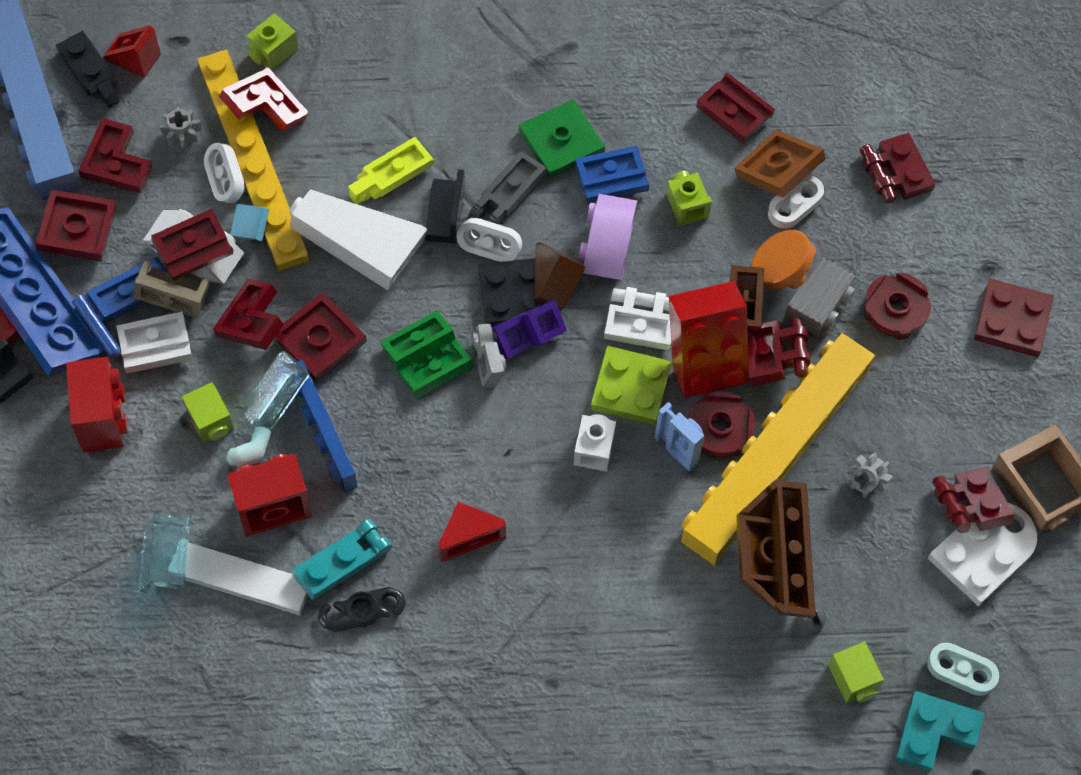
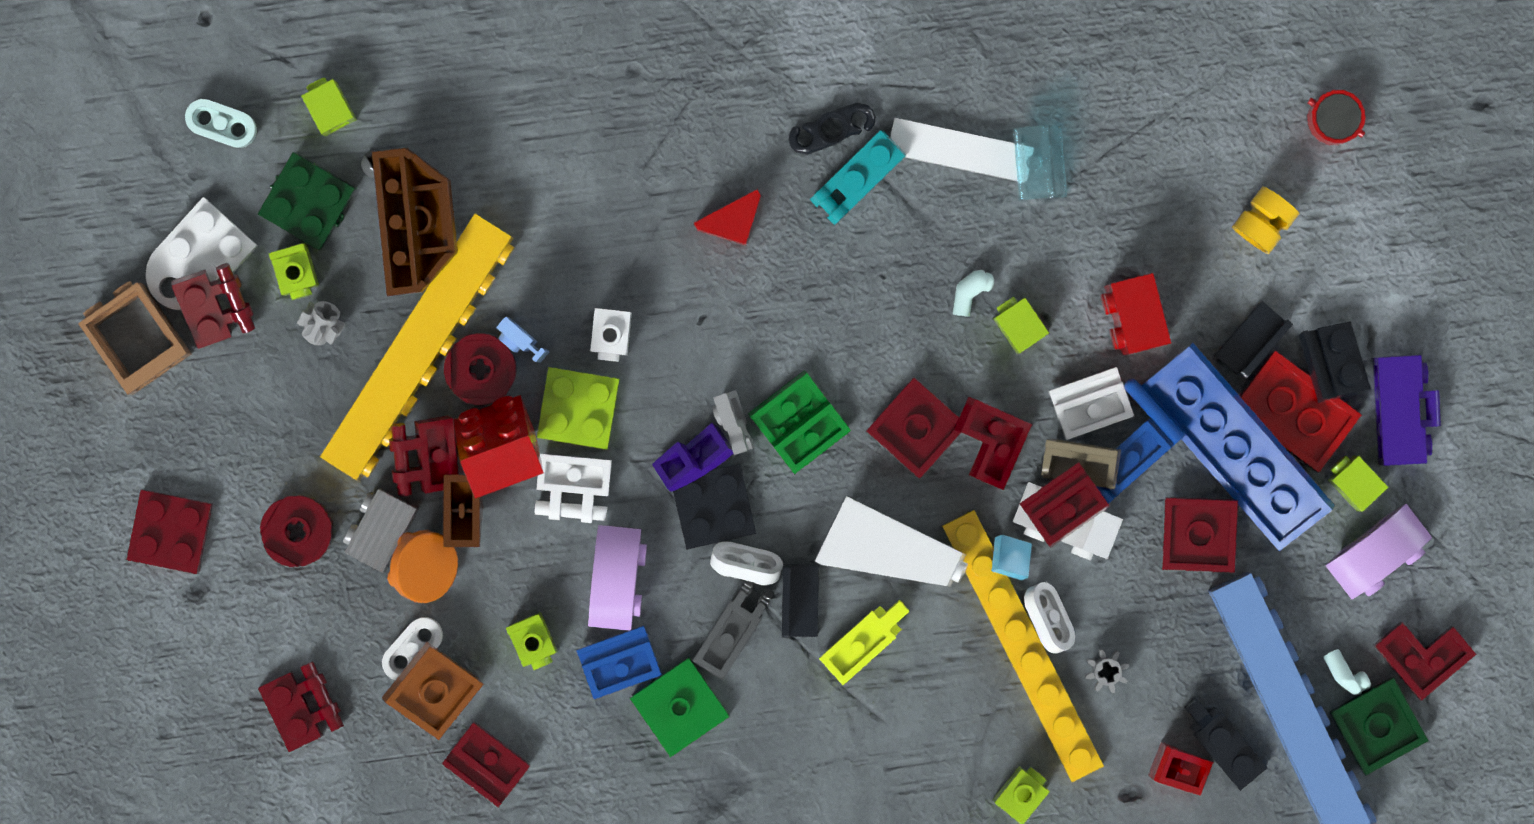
camera: 175 degrees left, 25 degrees up
(107, 159) = (1183, 621): dark red plate -> none
(265, 93) = (1013, 721): plate -> none
(270, 494) = (940, 231): red brick -> none
(275, 391) = (953, 353): clear light blue panel -> none
(327, 438) = (907, 335): blue plate -> none
(555, 275) = (669, 526): reddish brown slope -> none
(879, 590) = (307, 201): none -> dark green plate
(889, 535) = (294, 256): none -> lime brick
(933, 720) = (253, 68): teal plate -> none

